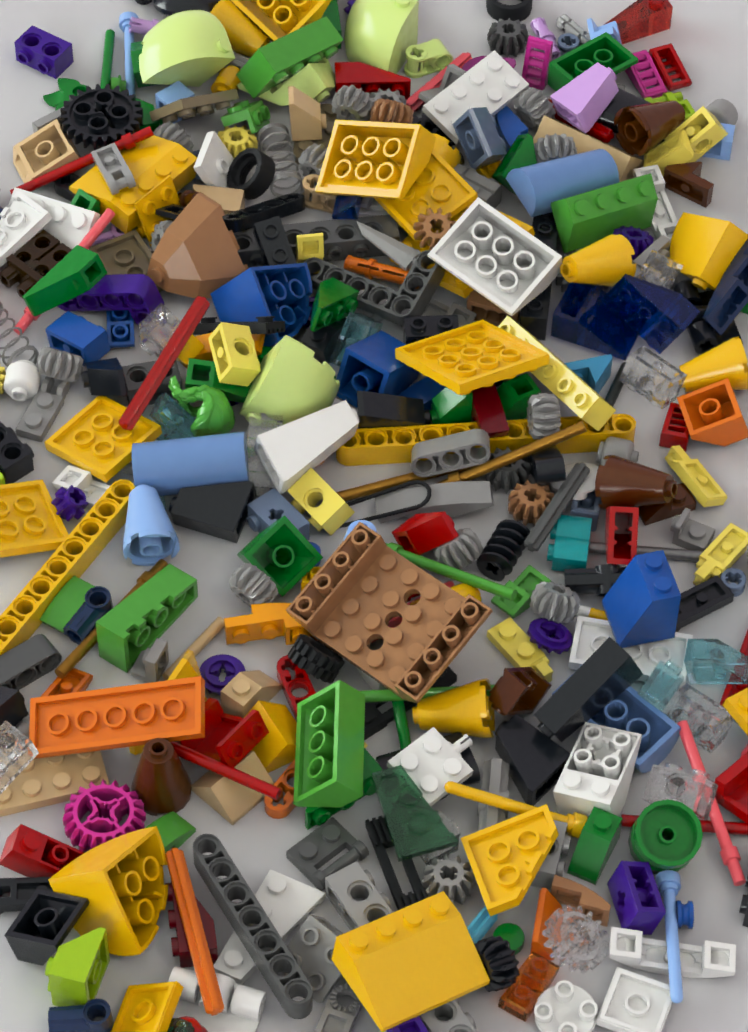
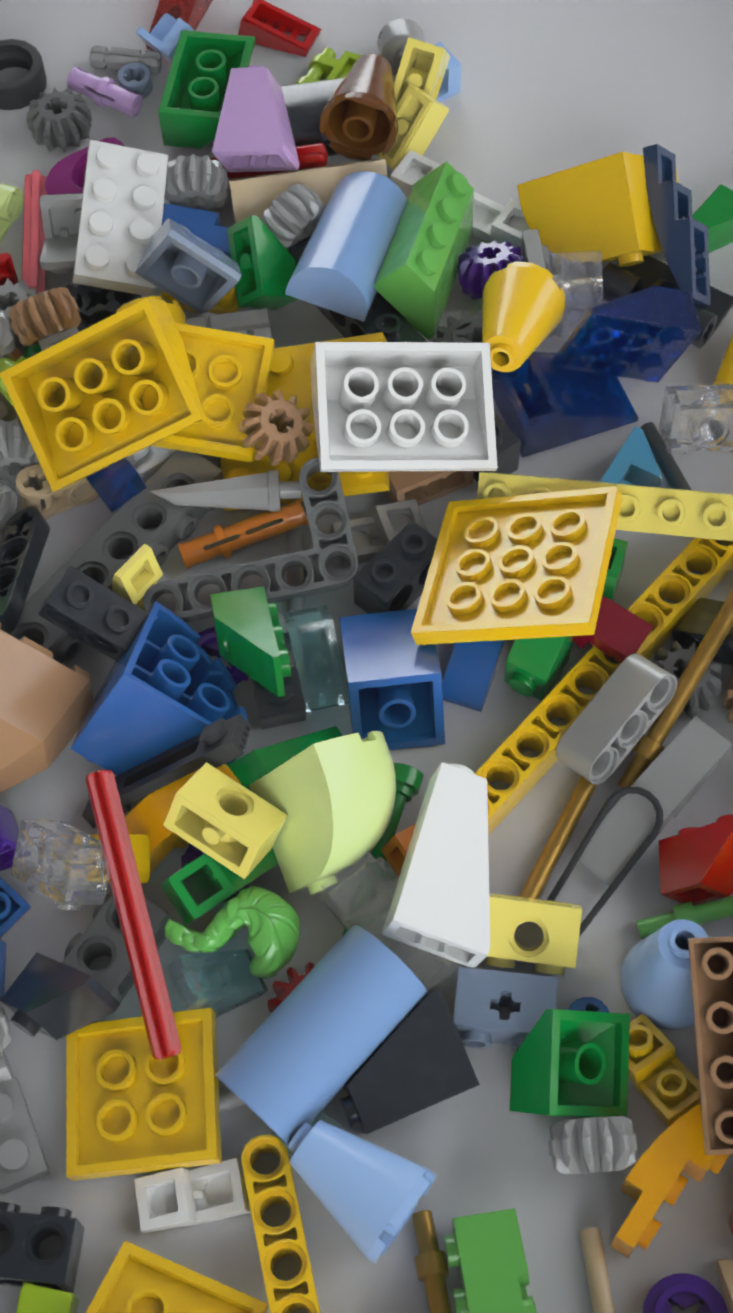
camera: 40 degrees left, 10 degrees up
(70, 503) = (206, 1244): dark purple gear -> none
(390, 410) = (484, 725): black slope -> none
(536, 77) = (145, 140): dark pink slope -> none
(543, 415) = (684, 575): light grey gear -> none
(638, 78) = (270, 49): dark pink slope -> none
(686, 181) = (464, 149): reddish brown slope -> none

